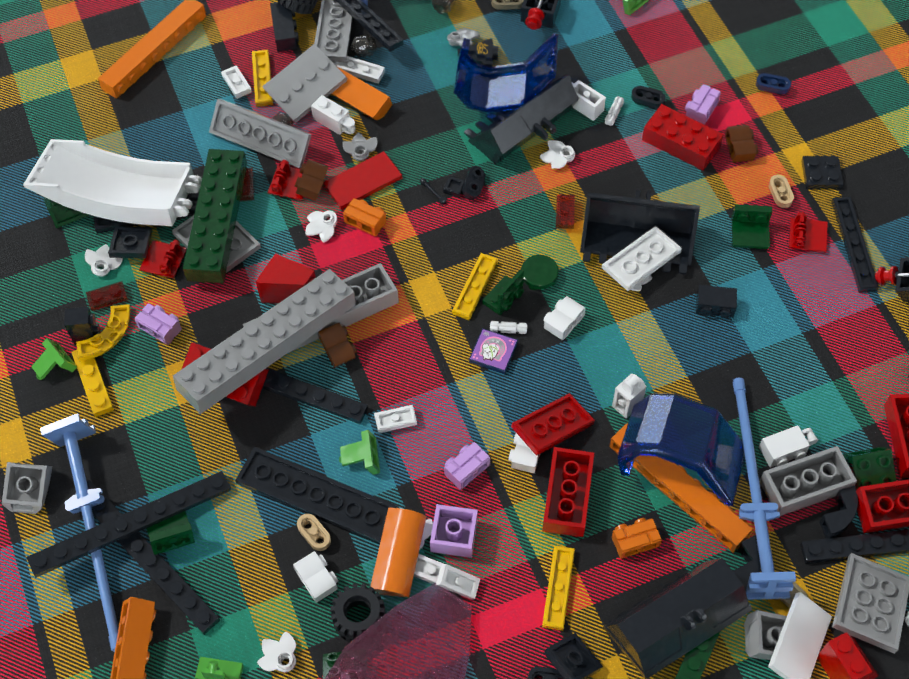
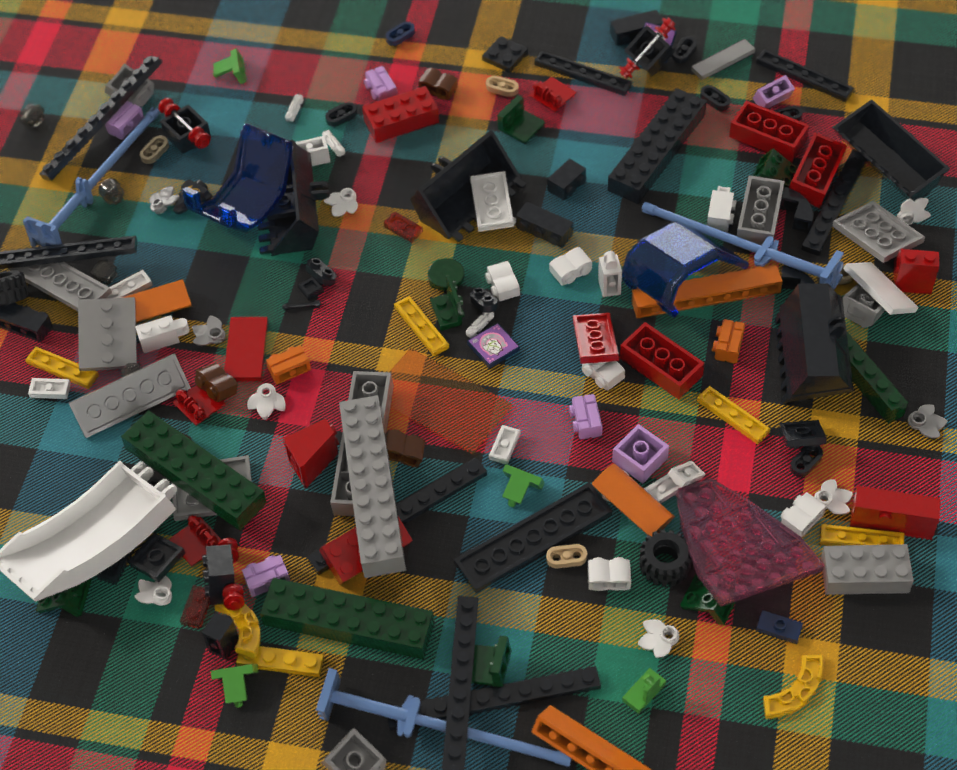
camera: 55 degrees left, 5 degrees down
(133, 291) = (220, 575): none -> black brick
(152, 405) = (348, 618): none -> dark green brick
(411, 349) = (445, 401): none -> clear orange piece
(532, 315) = (483, 300): none -> black plate
(621, 359) = (570, 266): none -> white brick
(628, 62) = (294, 108): none -> white axle
(650, 313) = (544, 224): none -> black brick
(818, 350) = (656, 146): none -> black brick

